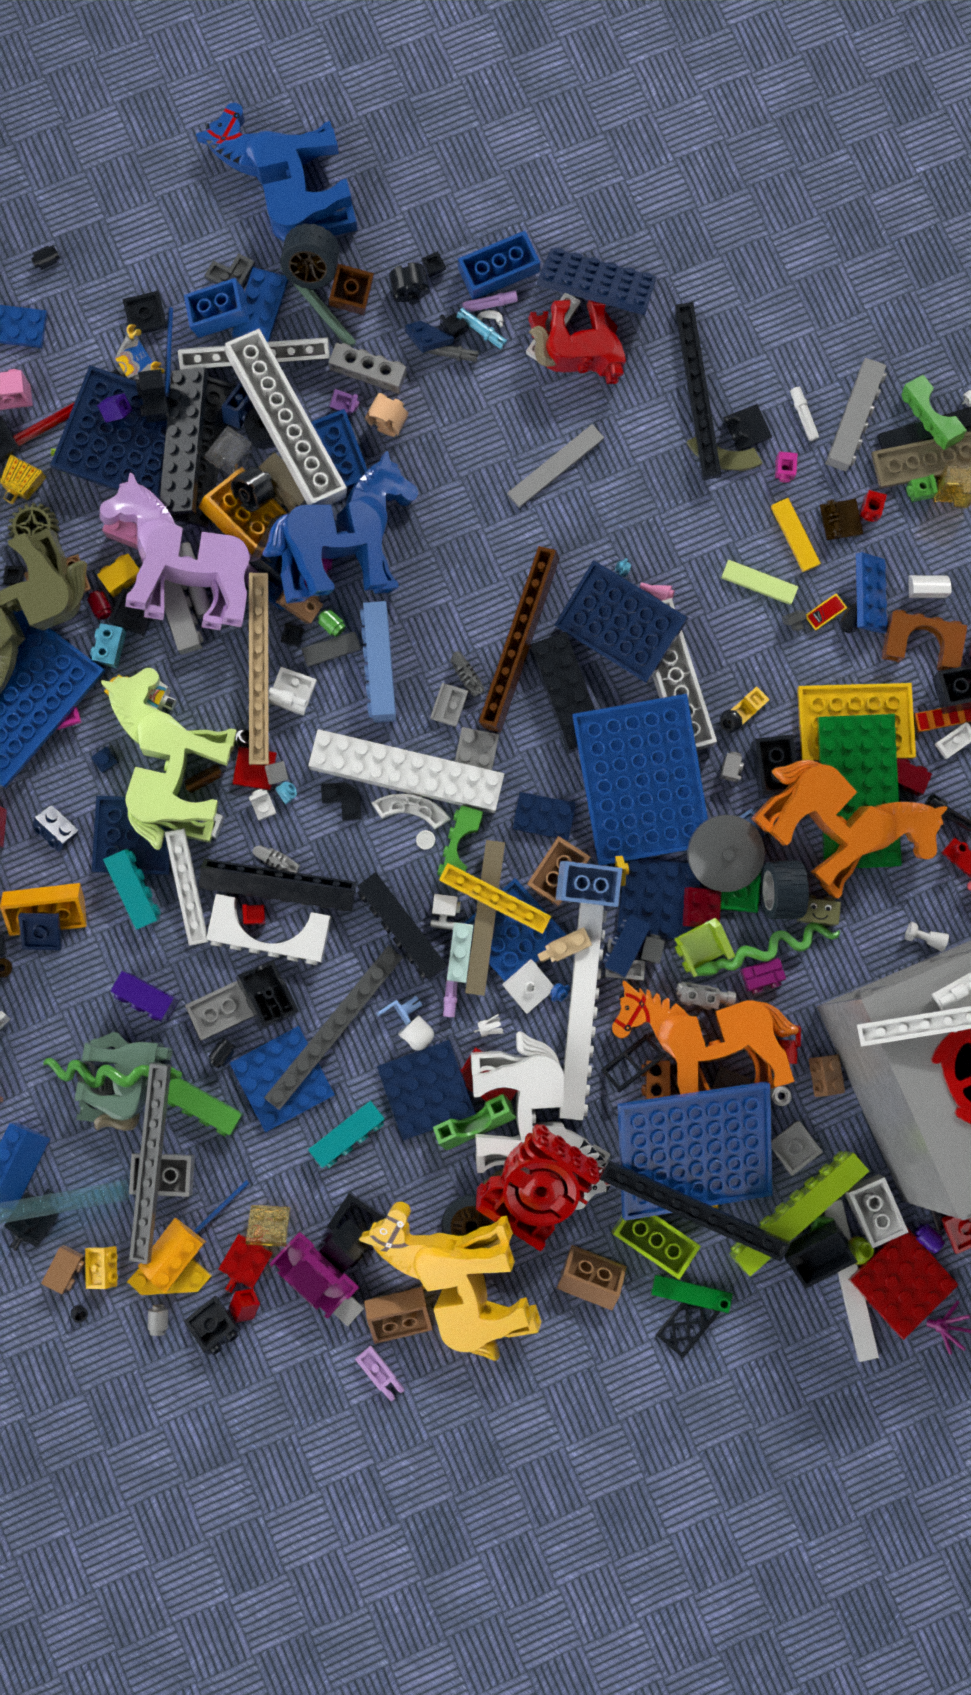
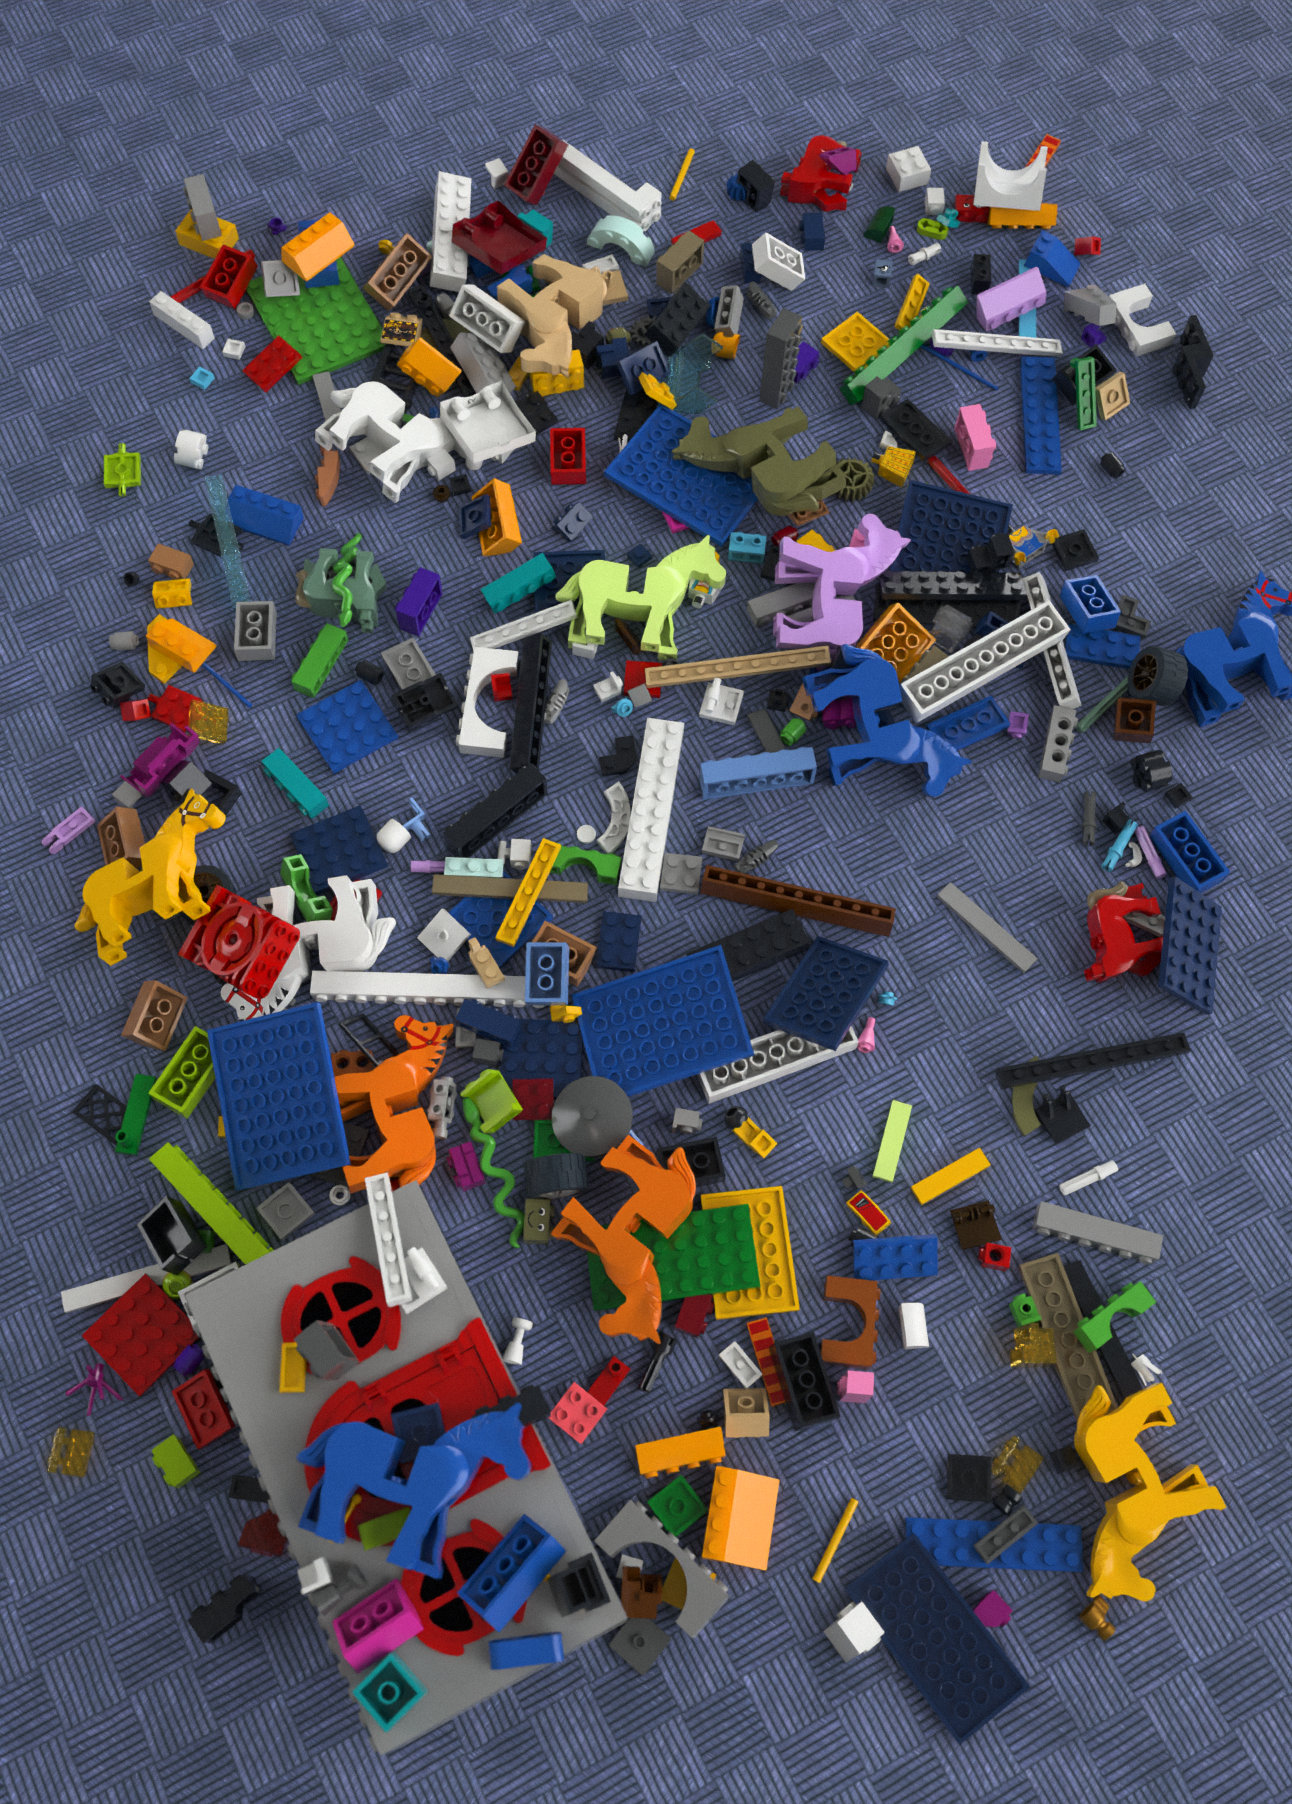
camera: 90 degrees right, 15 degrees down
(114, 407) = (973, 526): dark purple panel -> none
(150, 1163) = (263, 610): dark grey plate -> none
(169, 345) = (1062, 573): blue axle -> none
(253, 488) = (912, 642): black brick -> none
(333, 1028) = (394, 761): dark grey plate -> none
(387, 415) = (1010, 761): light nougat brick -> none
(427, 337) = (1100, 794): dark blue wing -> none
(489, 1026) = (401, 902): white piece -> none
(694, 1210) = (213, 1092): black plate -> none
(788, 461) = (1029, 1154): dark pink brick -> none

